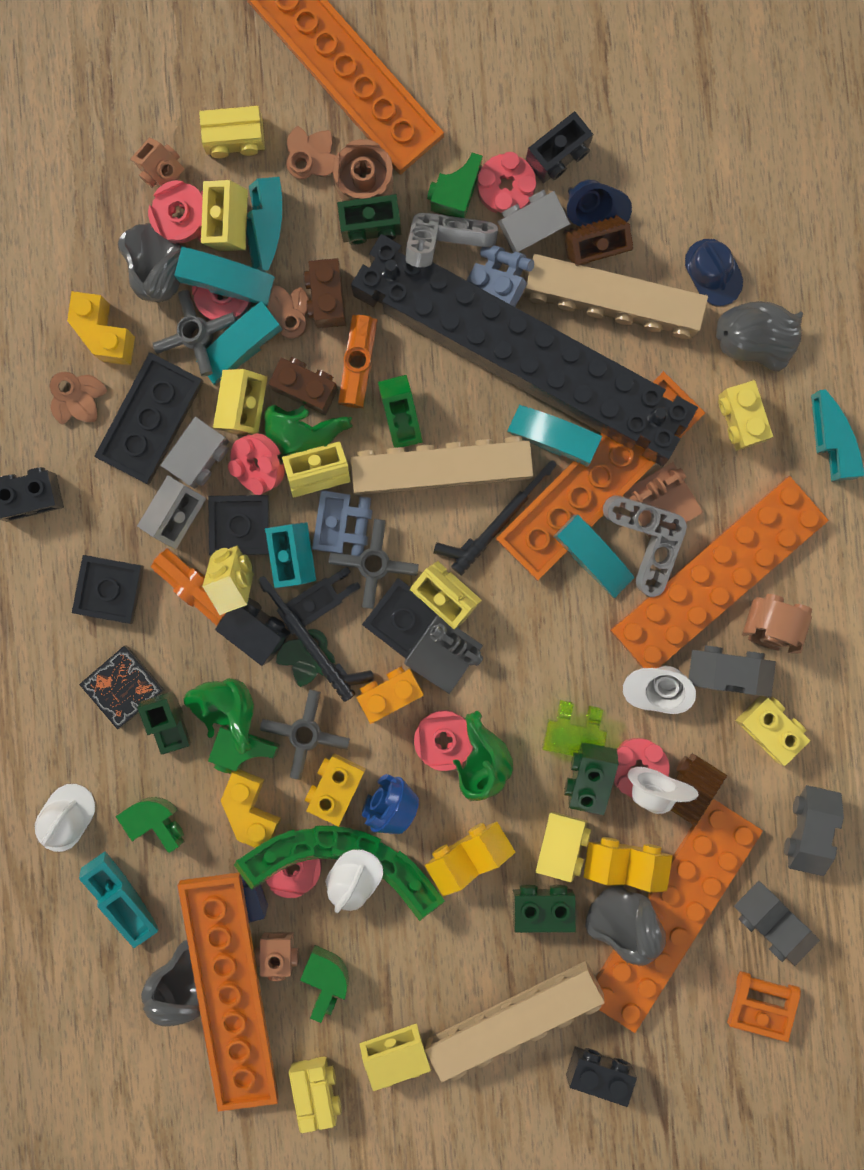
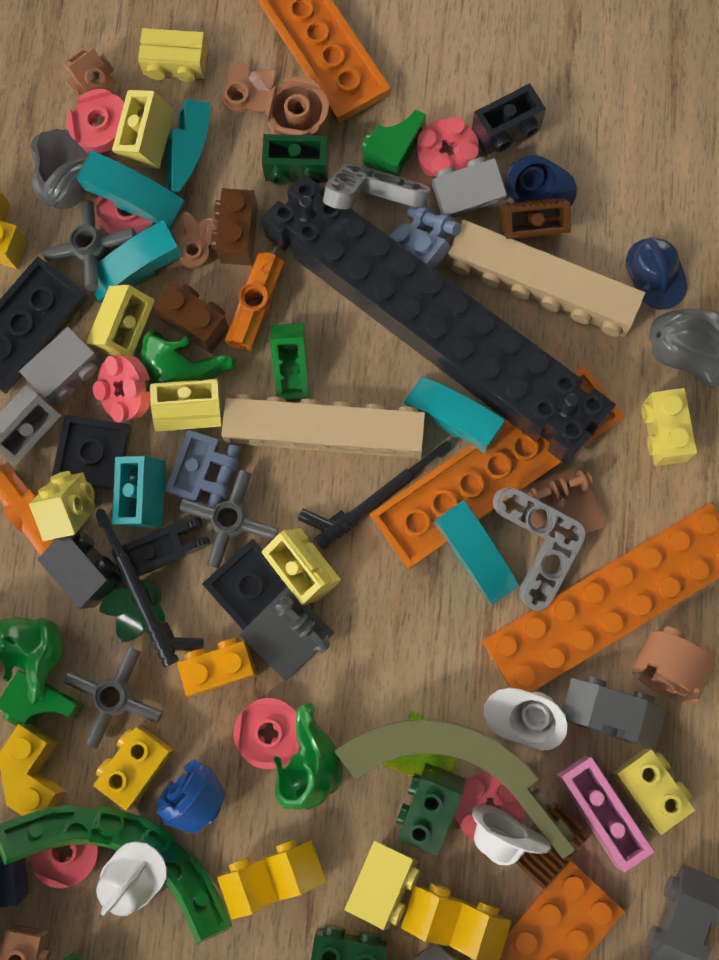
camera: 15 degrees right, 10 degrees down
(607, 720) = (465, 743): none -> olive arch
(736, 756) = (604, 813): none -> bright pink brick

